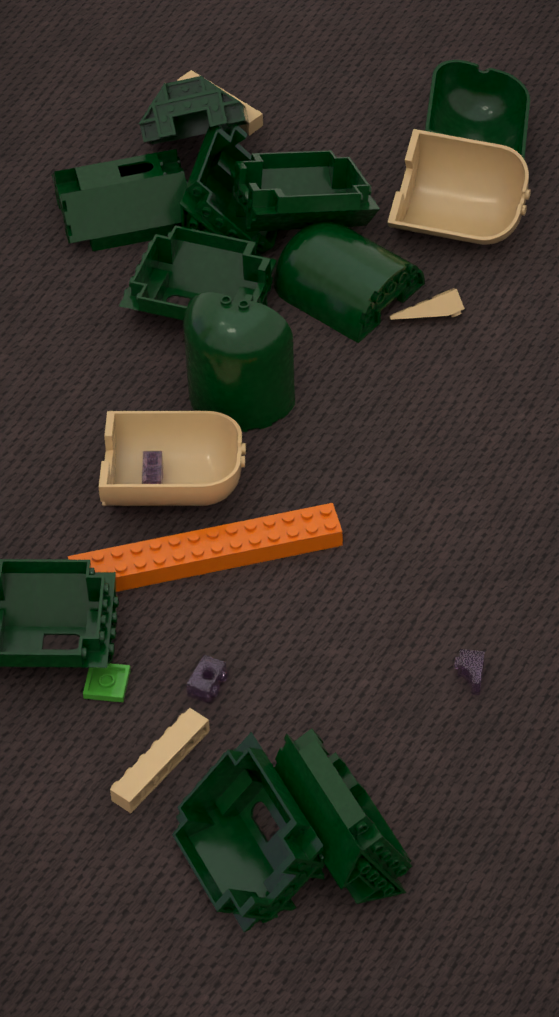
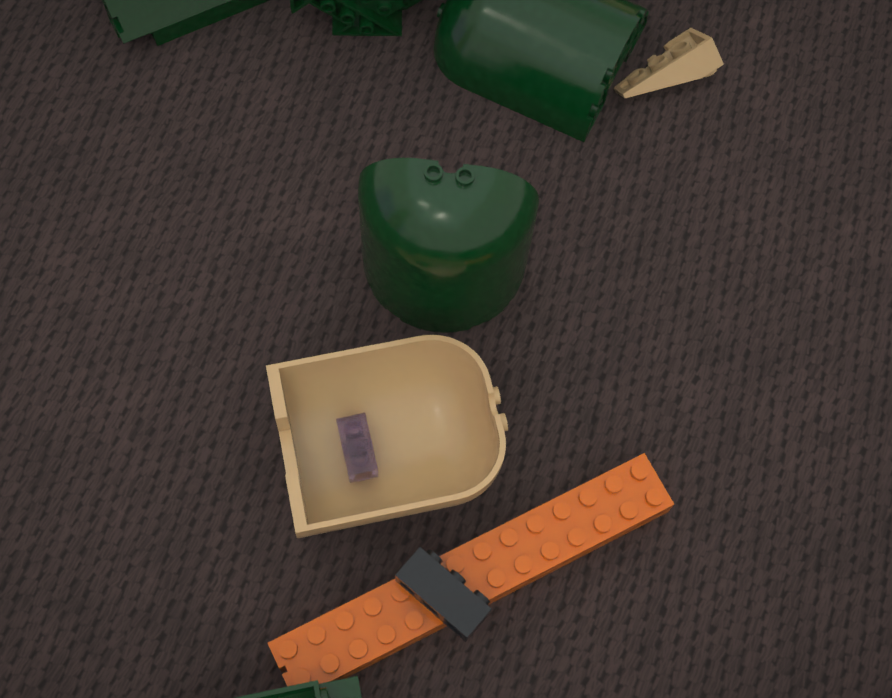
camera: 20 degrees left, 20 degrees up
(180, 543) = (443, 593): none -> black brick
(193, 264) = (344, 59): dark green panel -> none

